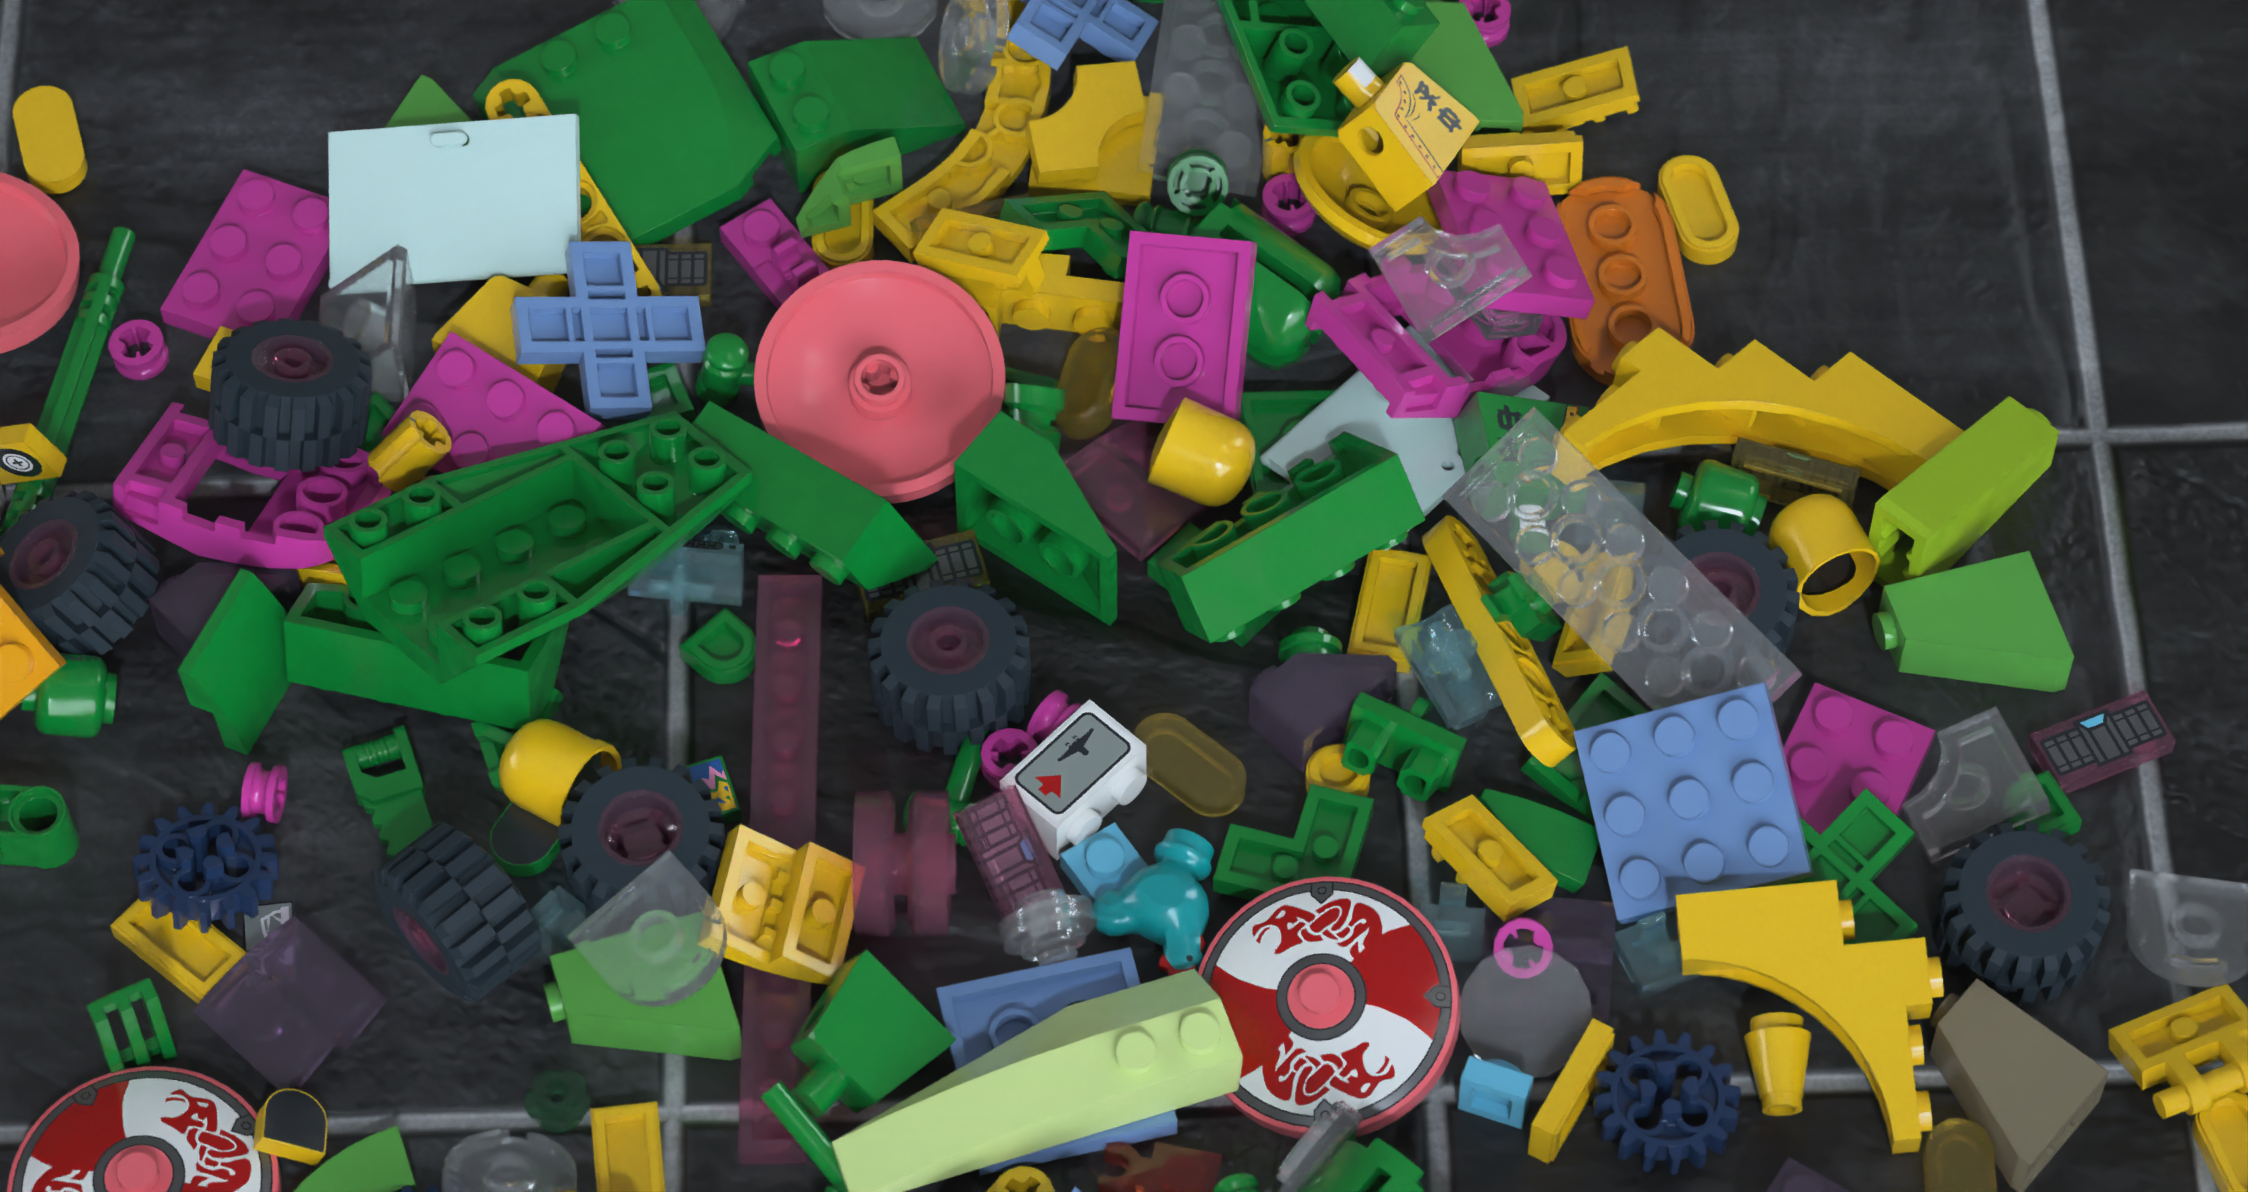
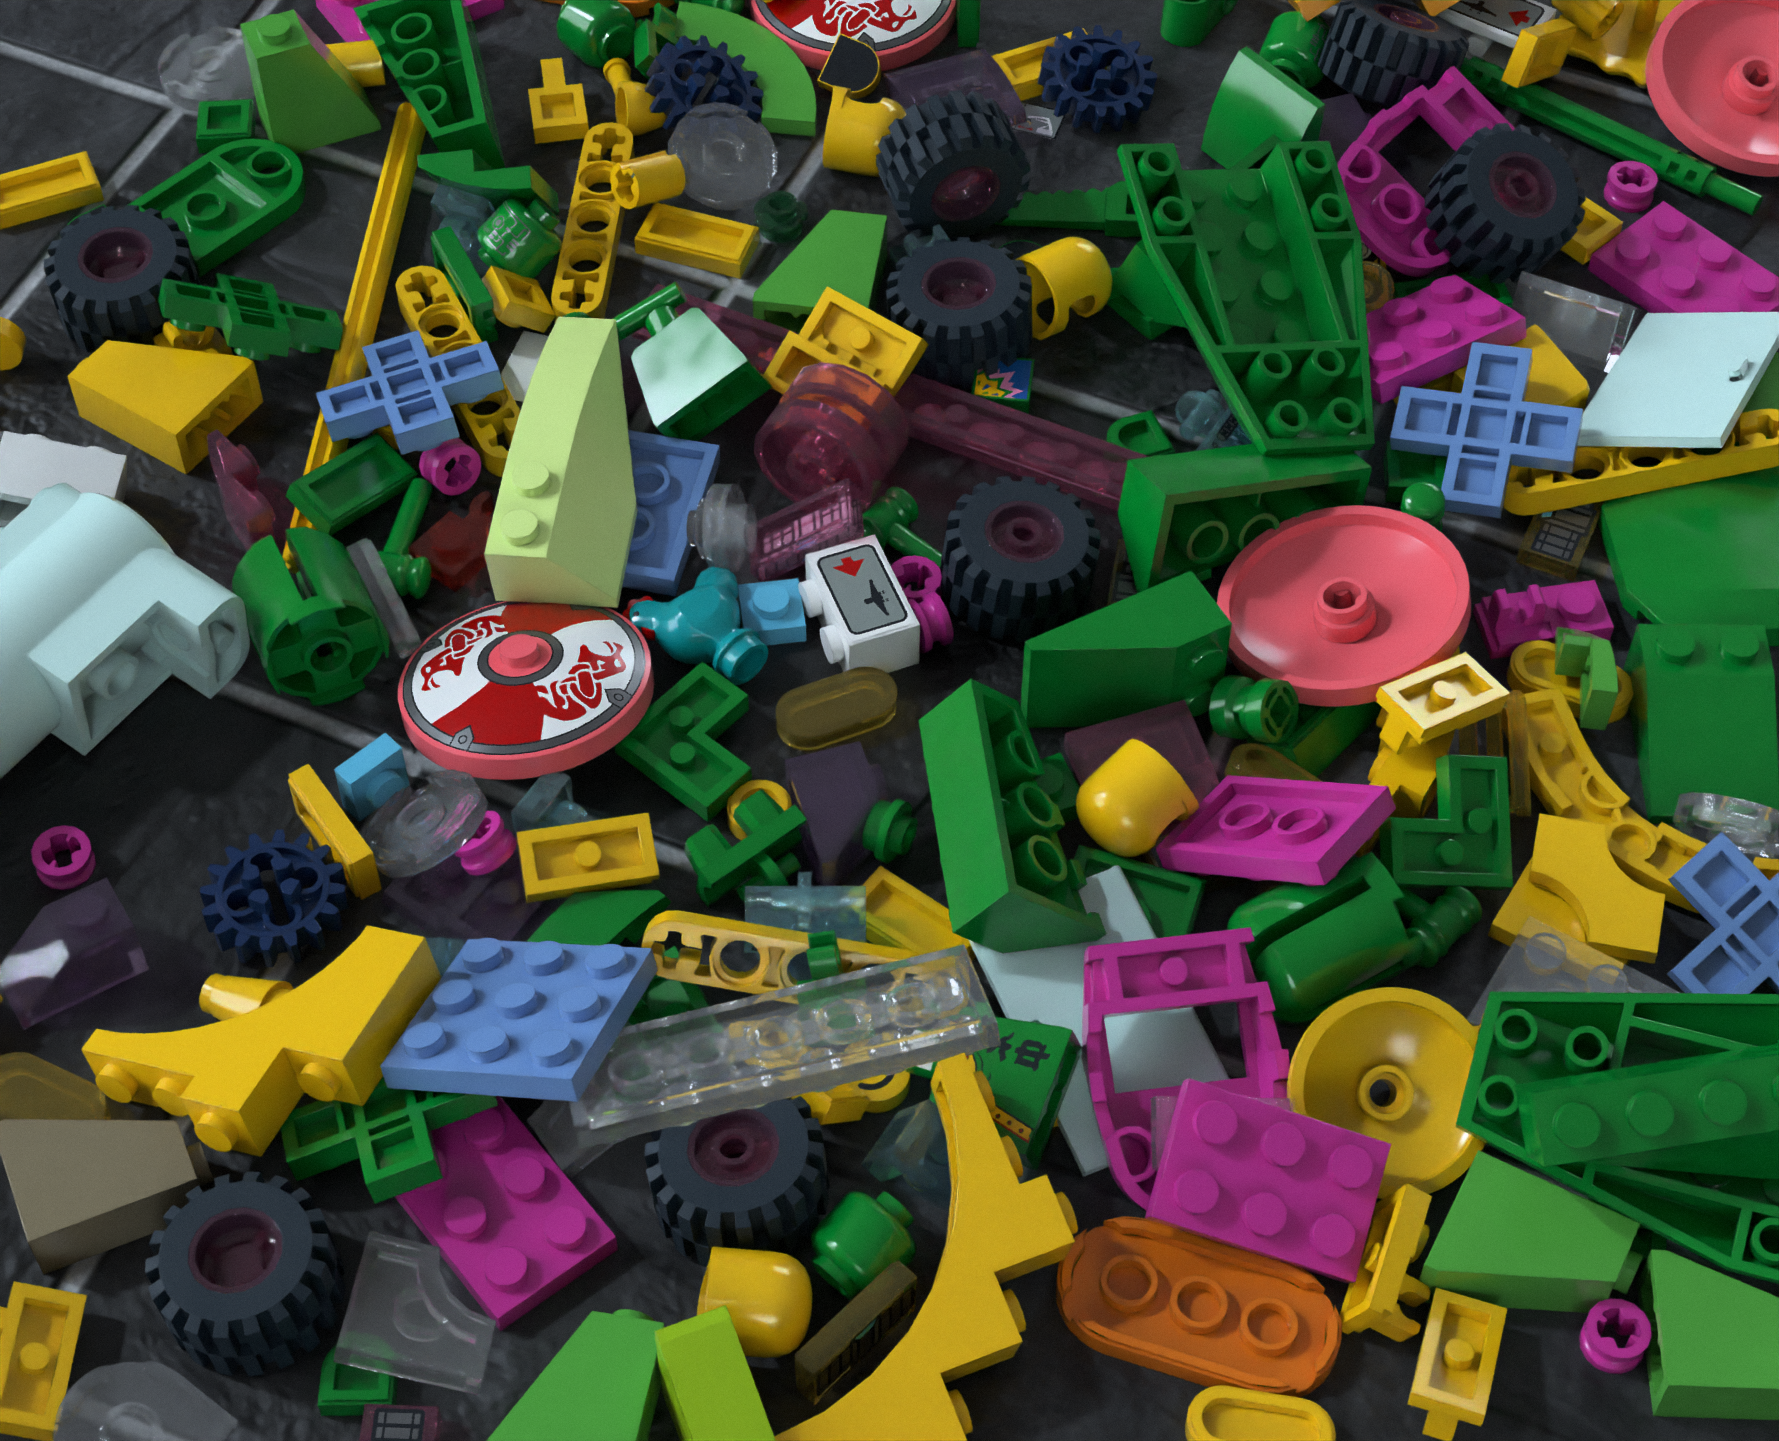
camera: 115 degrees right, 5 degrees down
(264, 792) = (1150, 126): dark pink bush -> none
(404, 1036) = (856, 131): none -> yellow helmet
(410, 451) = (1413, 263): yellow piece -> none
(655, 936) = (851, 256): clear tile -> none
(1193, 172) = (1481, 950): green wheel -> none
(1401, 128) = (1436, 1102): yellow torso -> none
(1447, 275) = (1221, 1052): clear tile -> none

